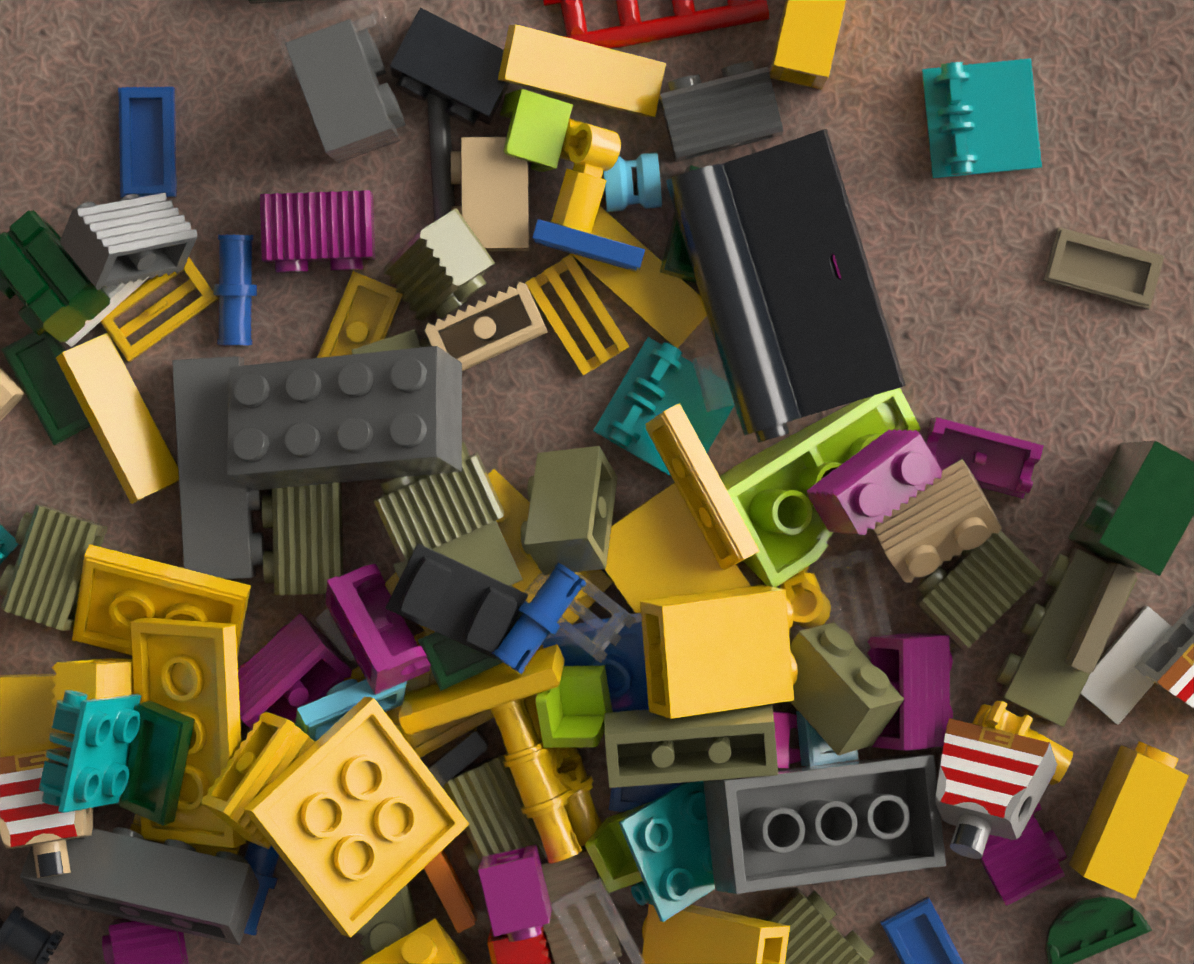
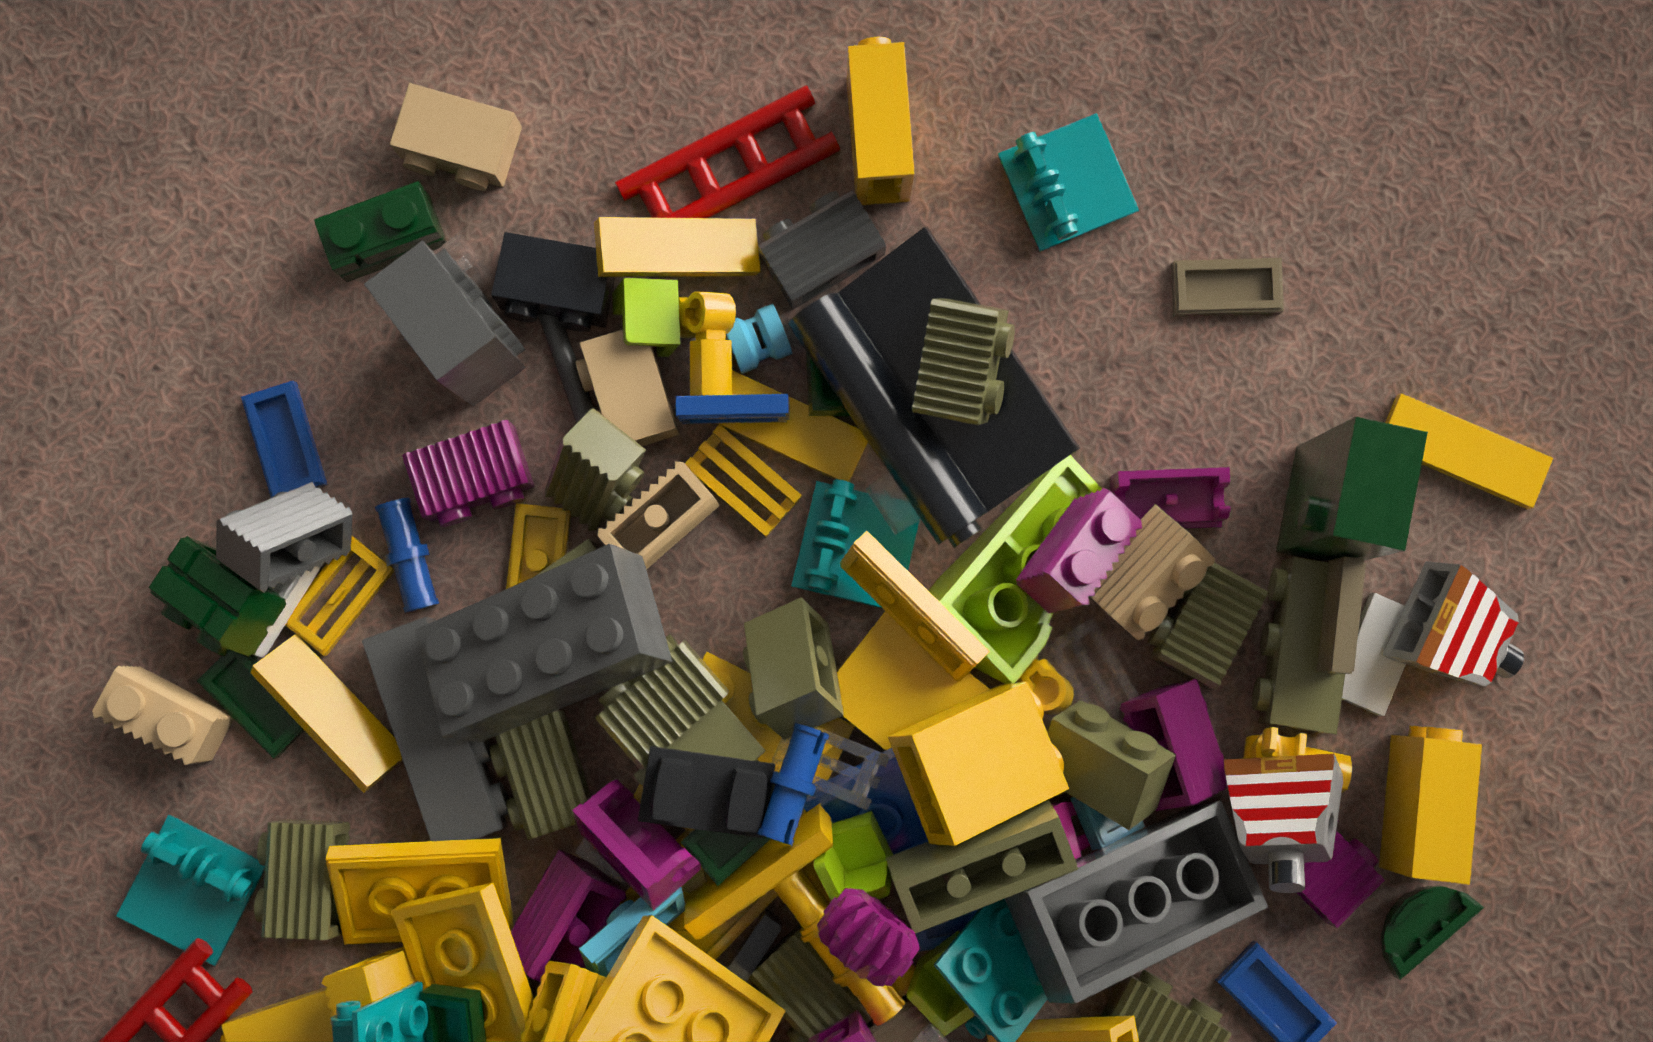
camera: 20 degrees left, 5 degrees down
(566, 777) = (868, 937): none -> magenta gear
(819, 270) = (962, 361): none -> olive brick

